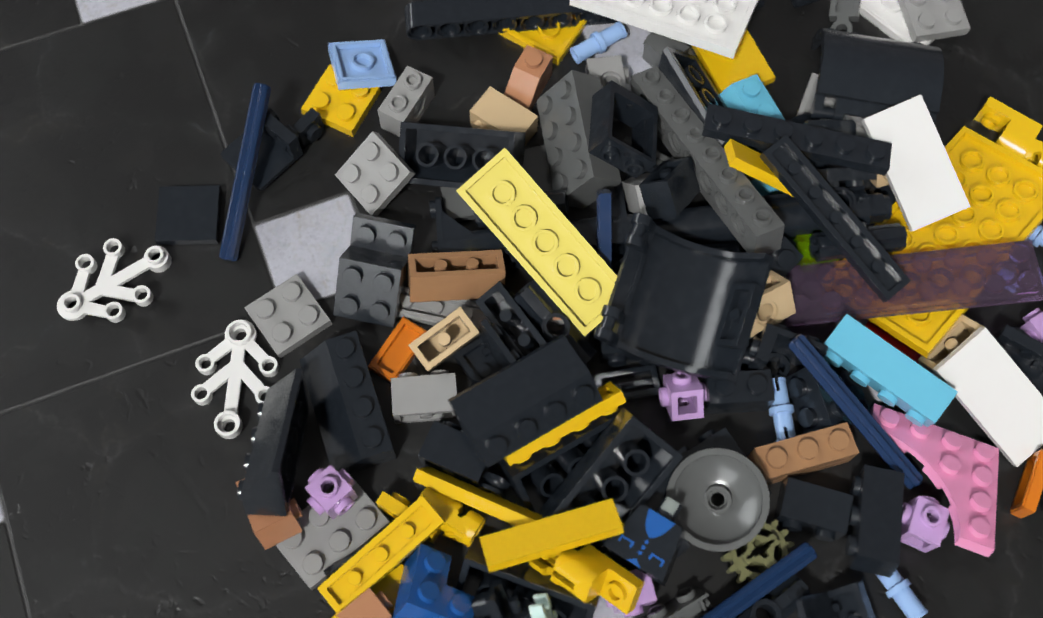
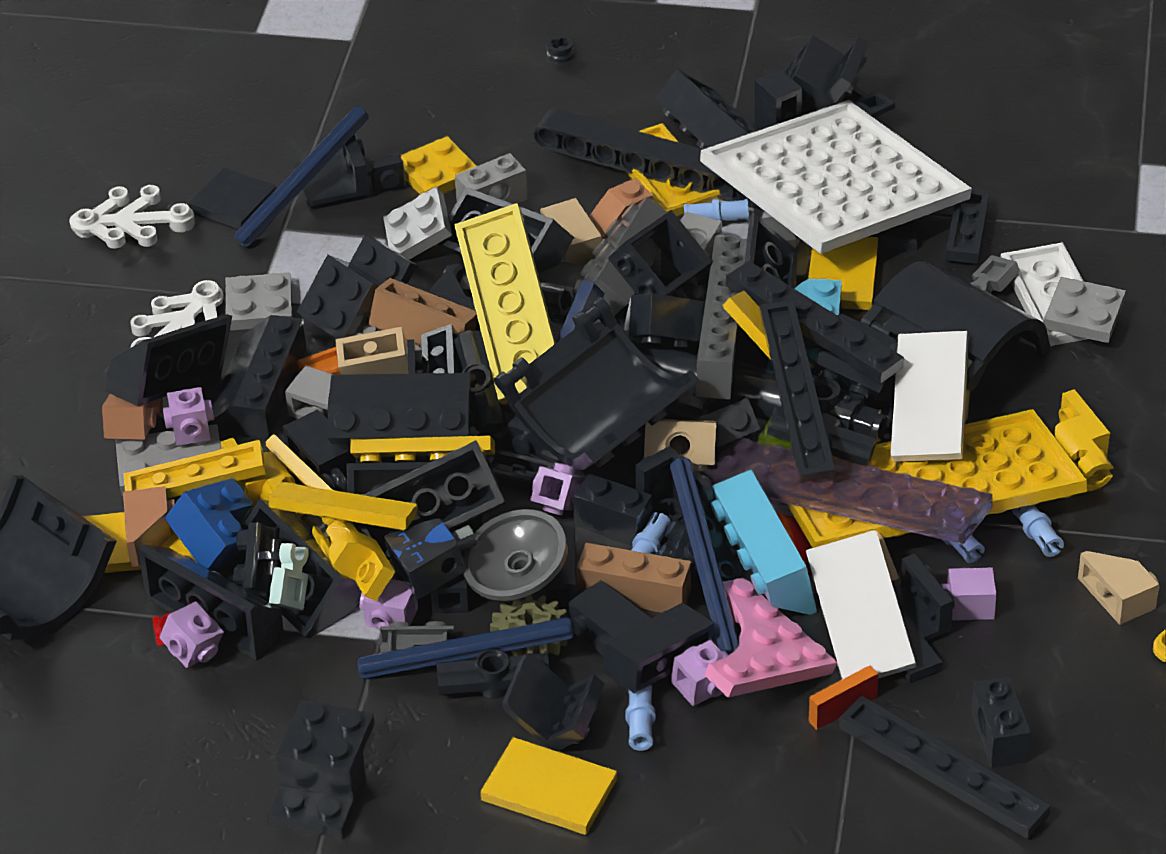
camera: 35 degrees right, 25 degrees down
(361, 64) = (473, 142): light blue tile -> none

